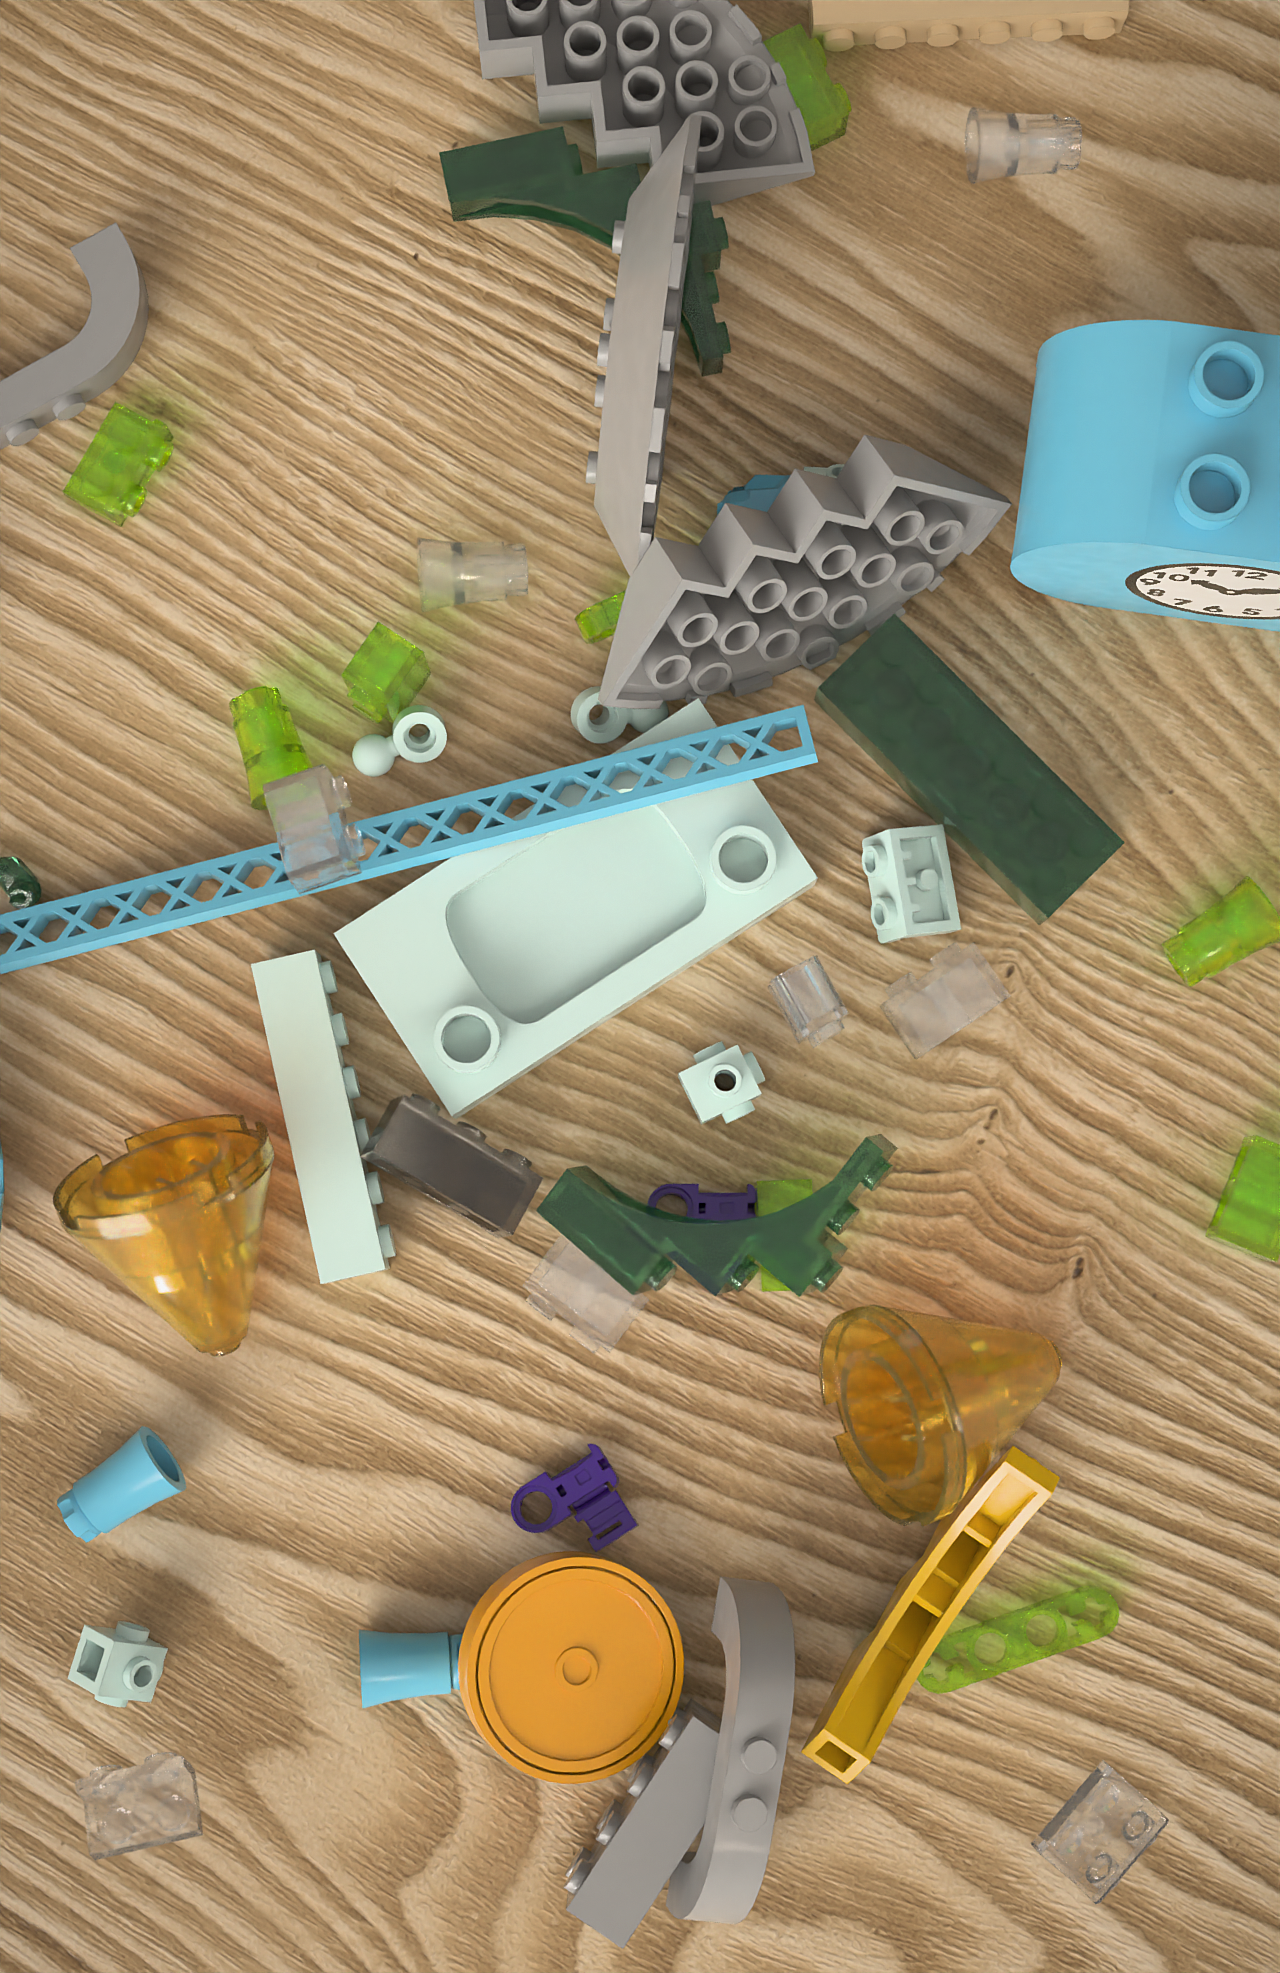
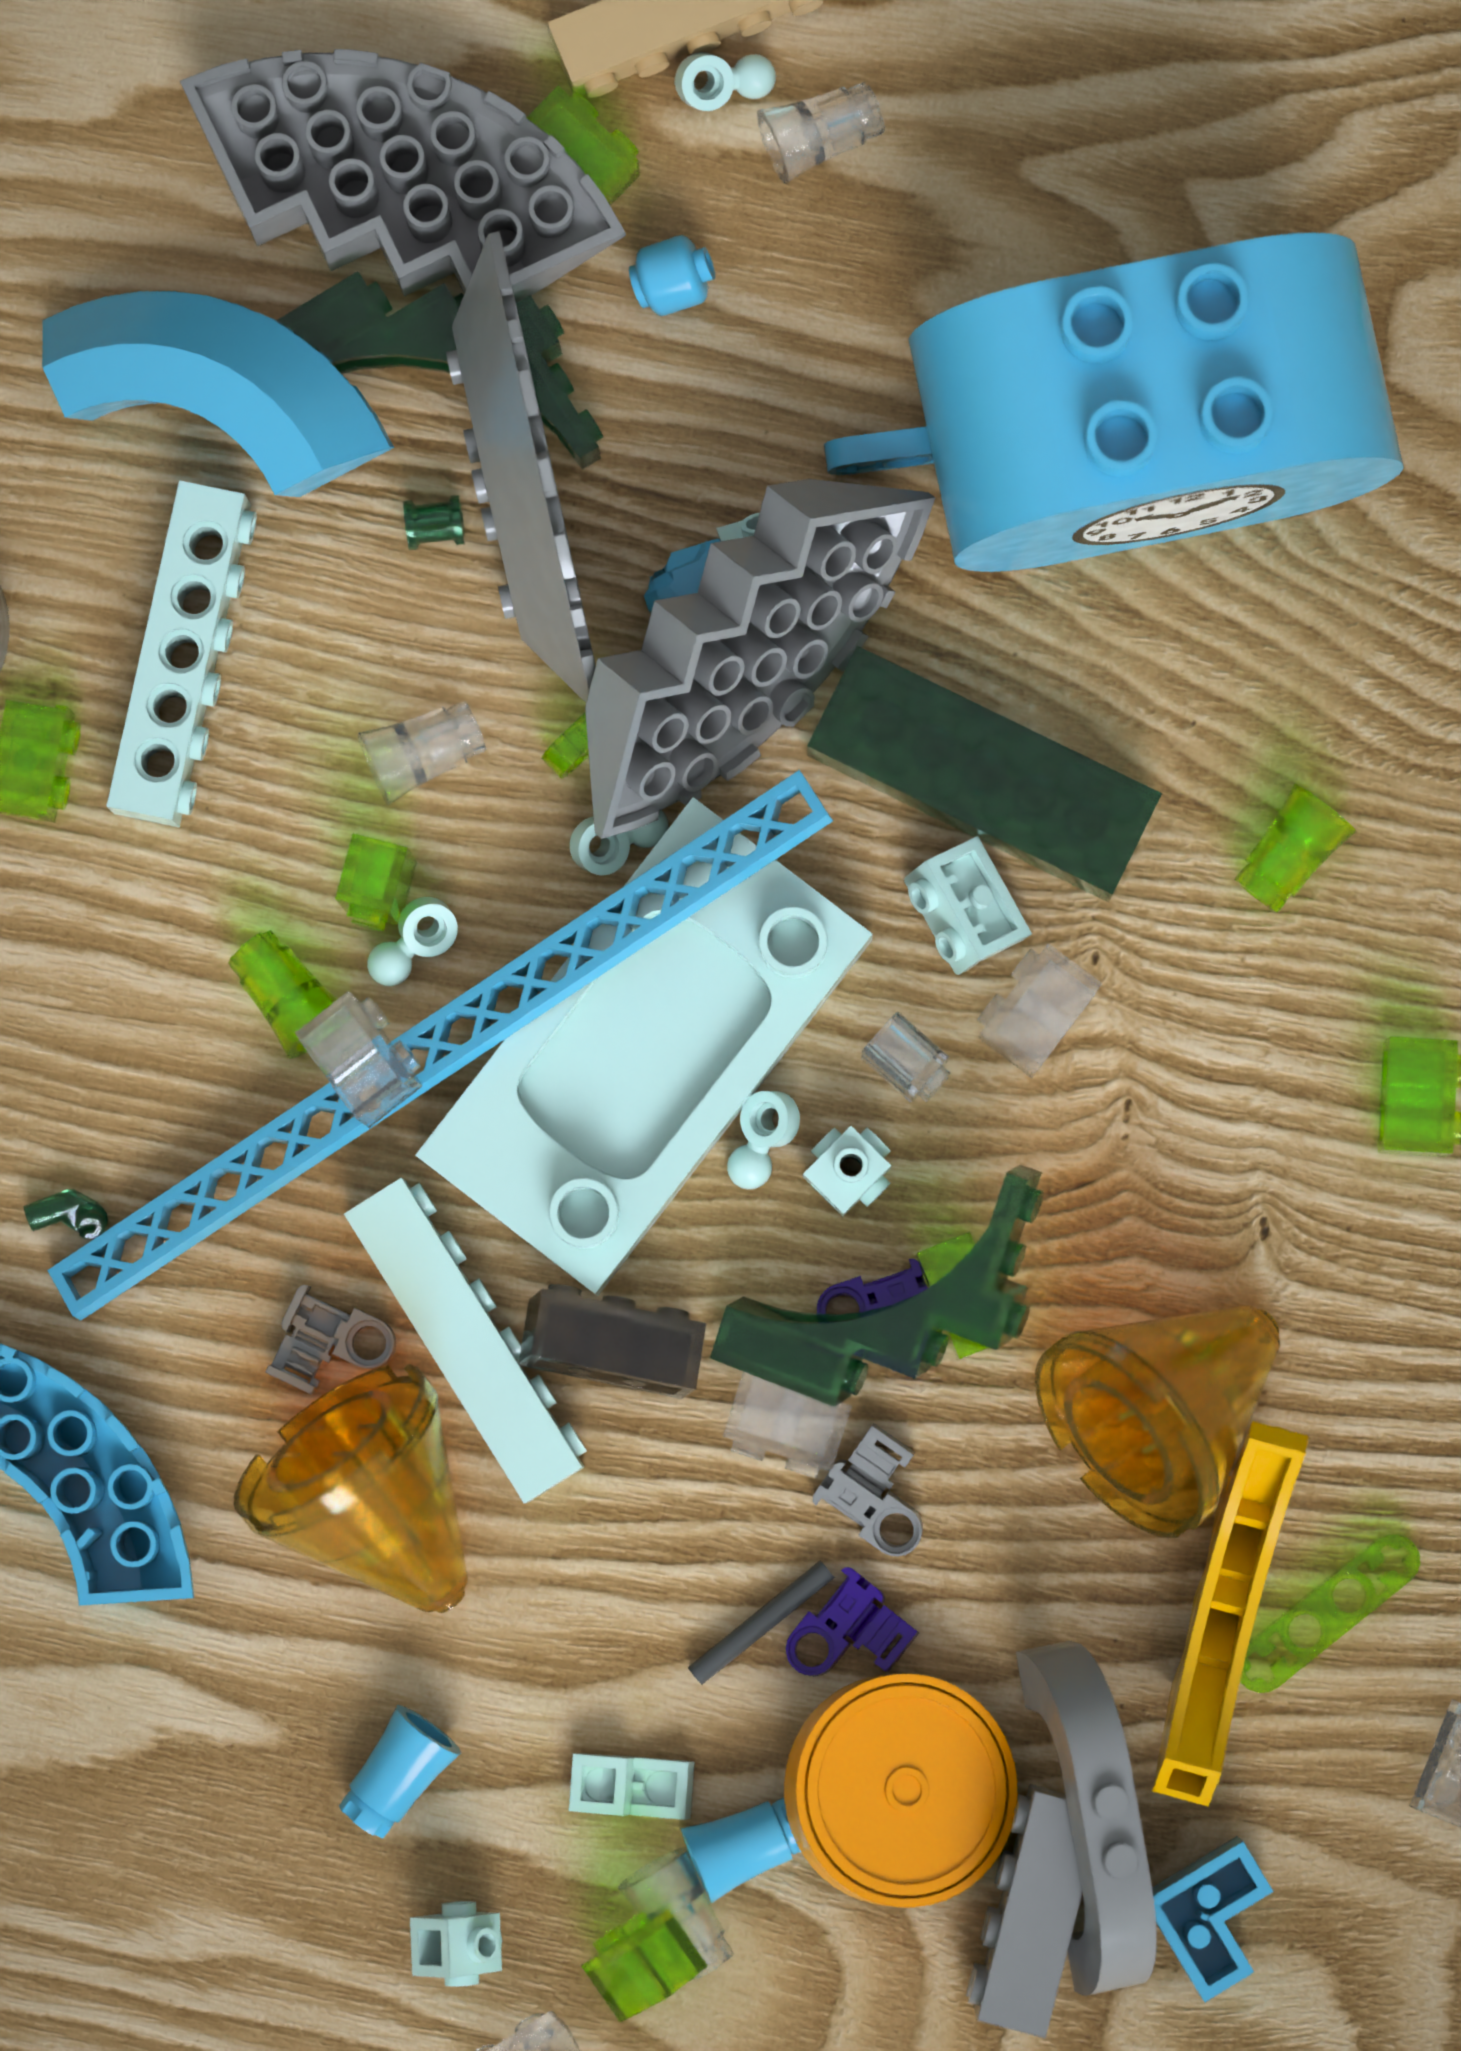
camera: 10 degrees left, 0 degrees up
(194, 1060) = (316, 1331): none -> light grey piece
(280, 1743) = (642, 1963): none -> clear neon green brick
(329, 1573) = (631, 1786): none -> light aqua slope
(330, 1706) = (674, 1885): none -> clear plant
(341, 296) = (195, 514): none -> light aqua brick
(417, 169) = (219, 363): none -> medium azure brick
(498, 1466) = (761, 1622): none -> dark grey bar
(552, 375) = (434, 522): none -> clear green bush
(631, 1375) = (859, 1490): none -> light grey piece
(635, 1047) = (750, 1164): none -> light aqua plate
(806, 1867) = (1193, 1913): none -> medium azure brick
(842, 229) = (671, 275): none -> medium azure head
(974, 80) = (751, 77): none -> light aqua plate
(975, 450) = (878, 451): none -> medium azure beam

